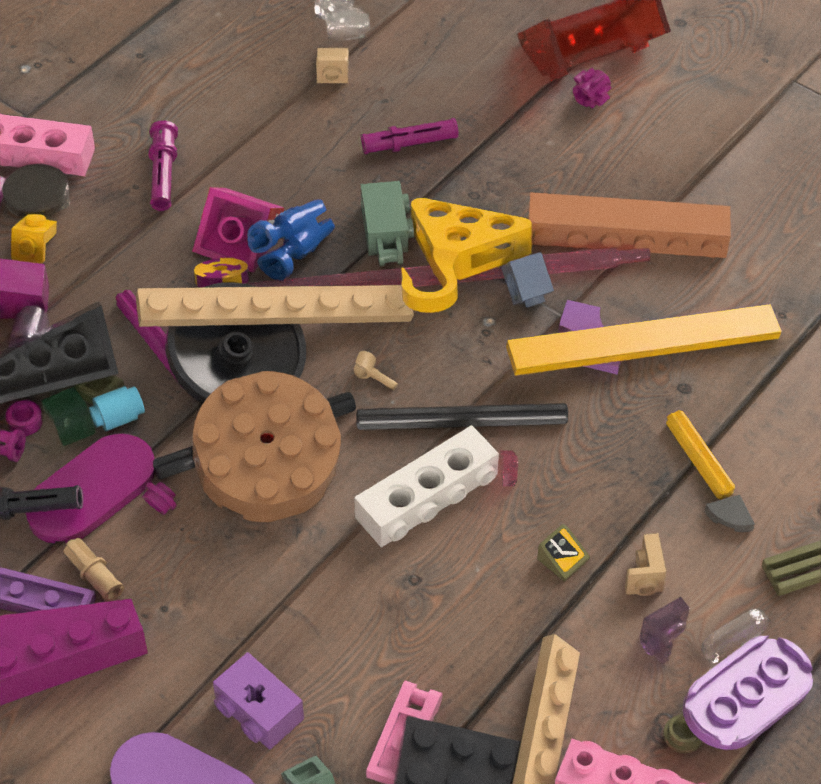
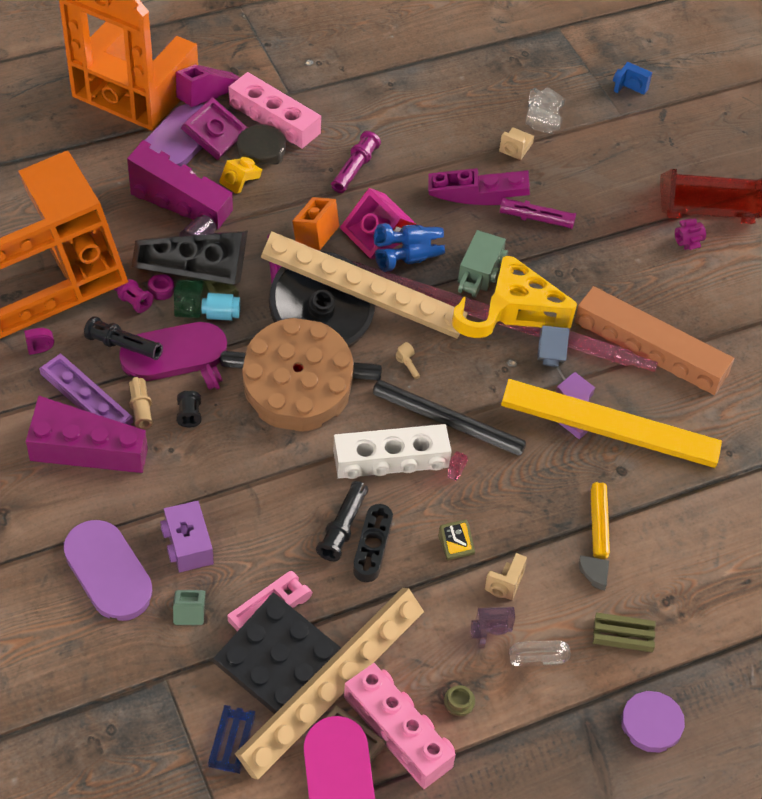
camera: 25 degrees right, 0 degrees up
(160, 552) = (189, 409): none -> black bush
(169, 255) = (316, 222): none -> orange brick
(221, 271) = (348, 248): piece -> none
(318, 139) = (476, 189): none -> magenta slope
(426, 607) = (339, 530): none -> black pin
(469, 617) = (376, 554): none -> black beam
(747, 692) = (522, 695): tile -> none

